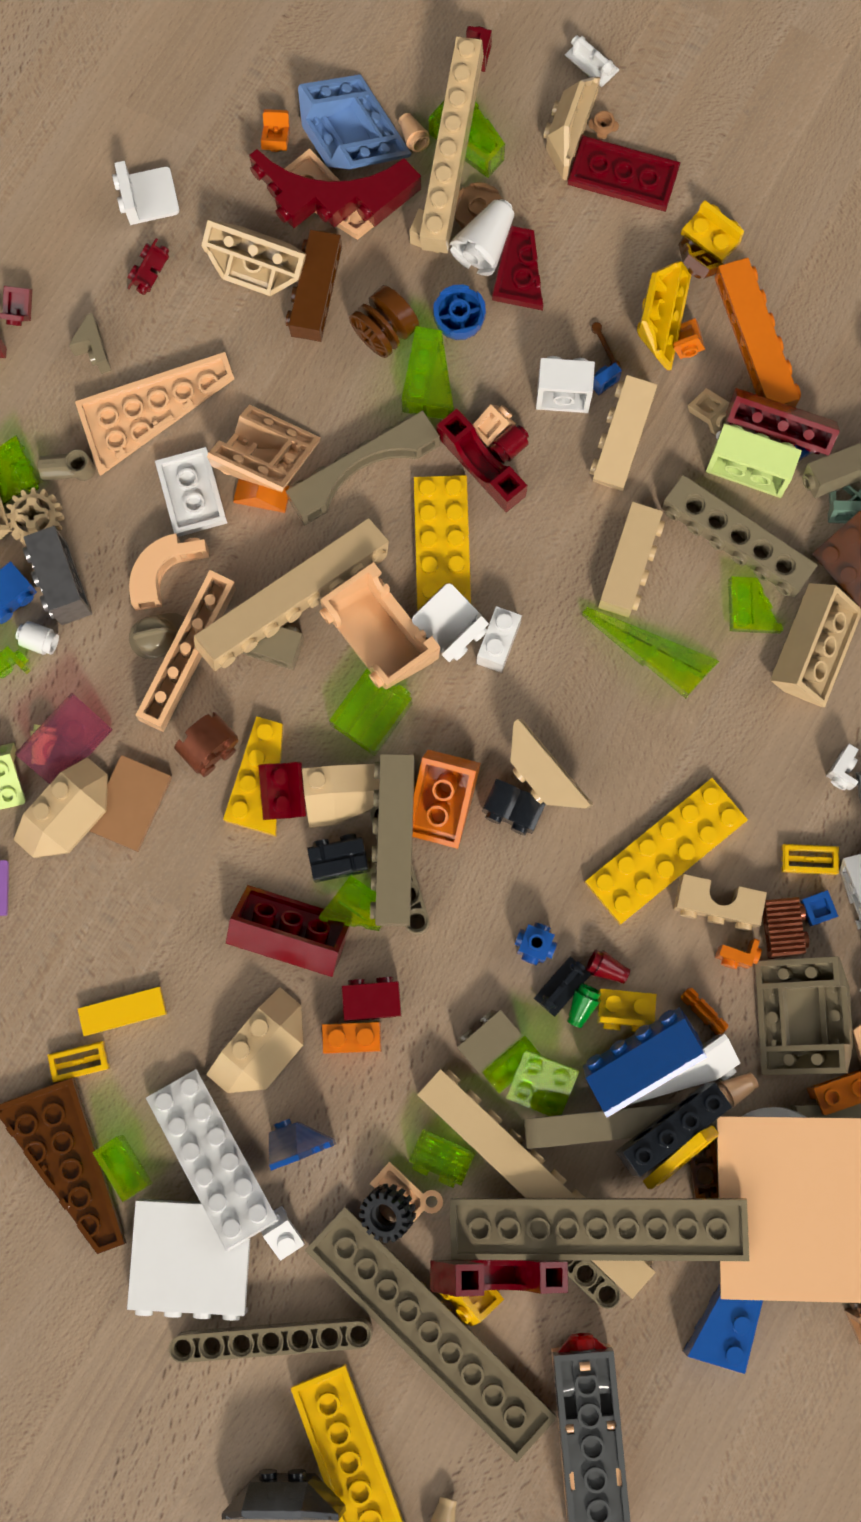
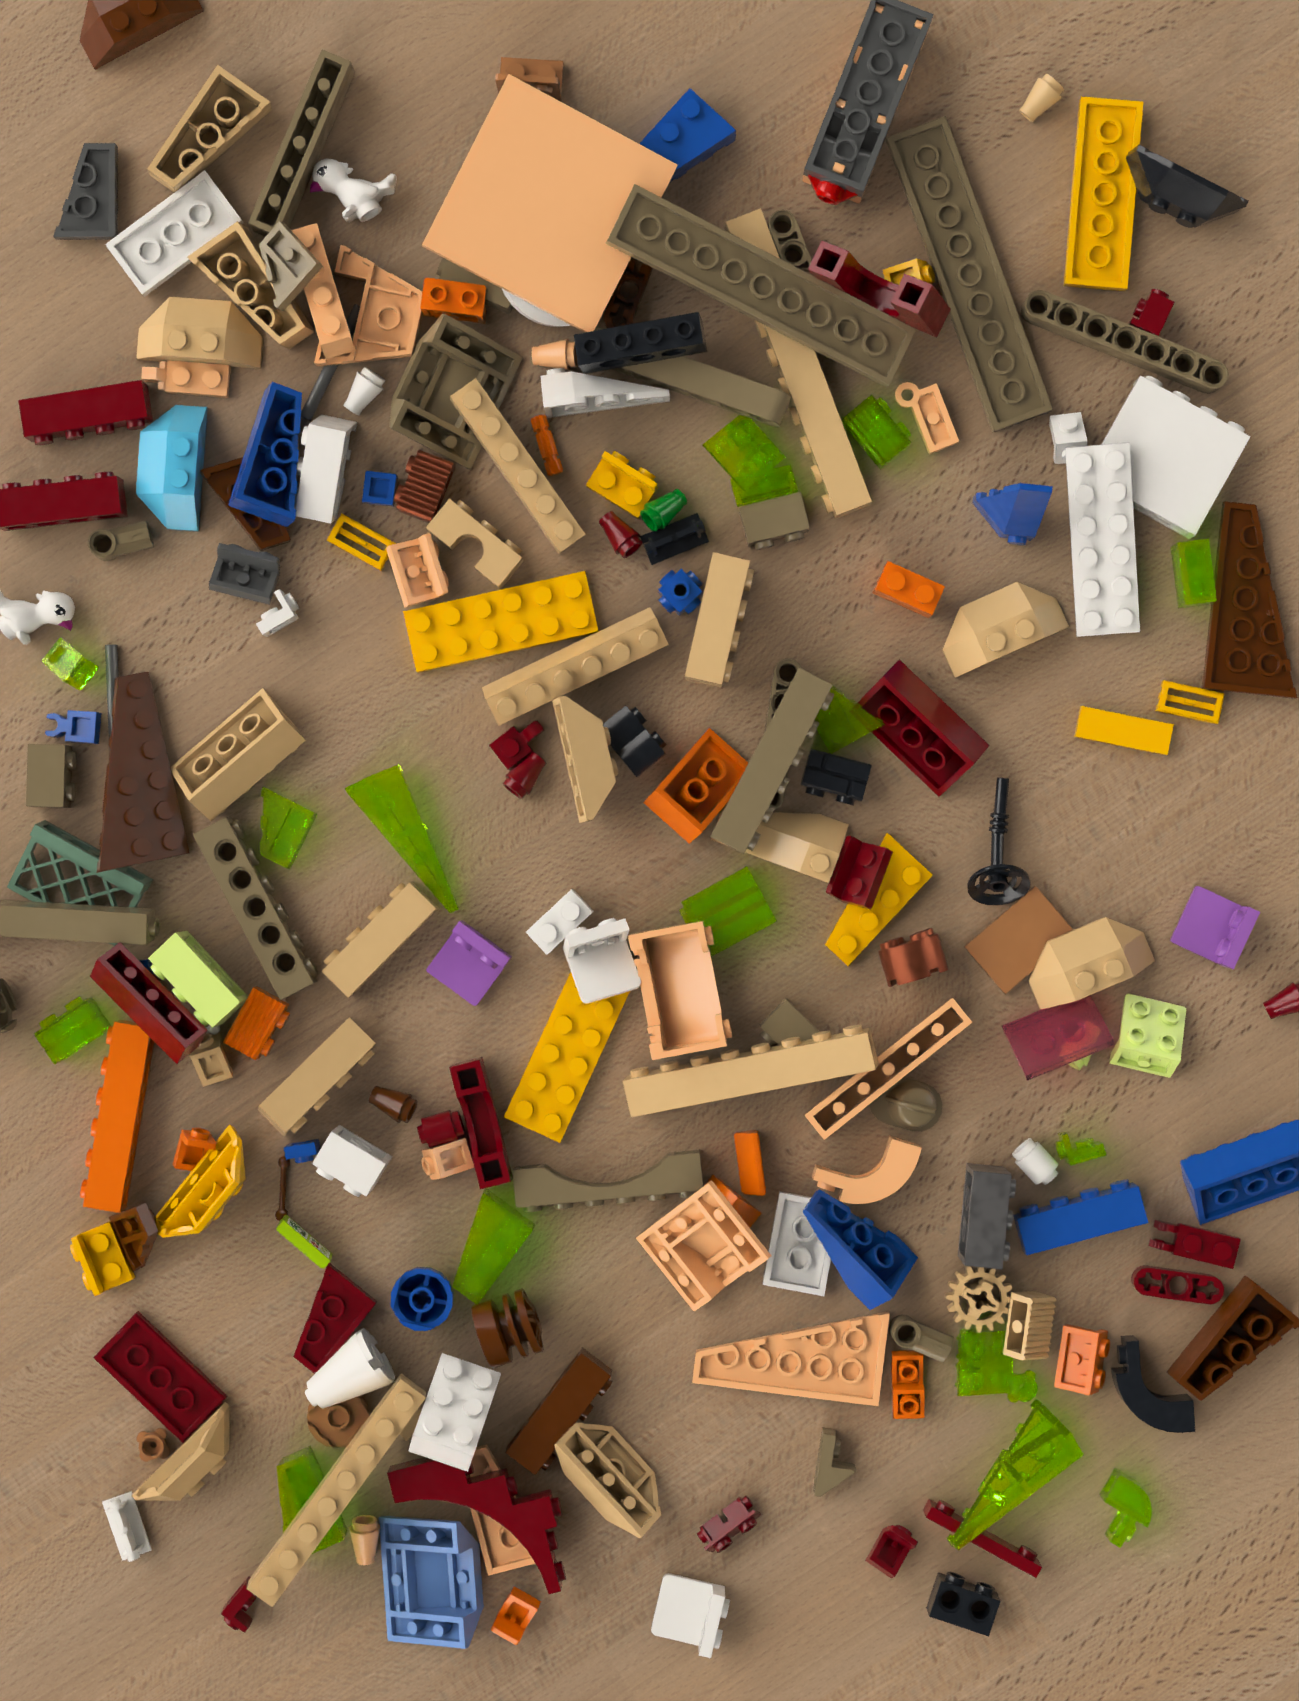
camera: 160 degrees left, 10 degrees up
(59, 428) = (907, 1384): none -> orange slope
(139, 505) = (865, 1257): none -> blue wedge
(170, 843) = (997, 871): none -> black dish
(259, 532) = (750, 1162): none -> orange slope
(259, 1377) = (1152, 312): none -> dark red brick
(371, 1000) = (870, 616): dark red brick -> none
(375, 1220) = (943, 410): black tyre -> none
(393, 242) = (454, 1412): none -> white brick
(494, 933) = (717, 619): none -> tan brick
(553, 576) = (468, 963): none -> medium lavender bracket
(555, 445) = (395, 1104): none -> reddish brown cone
(569, 313) = (304, 1242): none -> lime tile
(584, 738) = (524, 776): none -> dark red cone
(589, 842) = (574, 666): none -> tan brick
(604, 759) = (514, 746): none -> dark red plate
(643, 1061) = (634, 422): blue slope -> none
(681, 1157) = (646, 314): yellow tile -> none
(690, 451) = (257, 1023): none -> orange brick
(720, 979) = (517, 465): none -> tan brick
(733, 958) = (491, 481): orange bracket -> none
(754, 857) = (418, 570): none -> light nougat bracket
(826, 380) = (72, 1029): none -> clear neon green brick

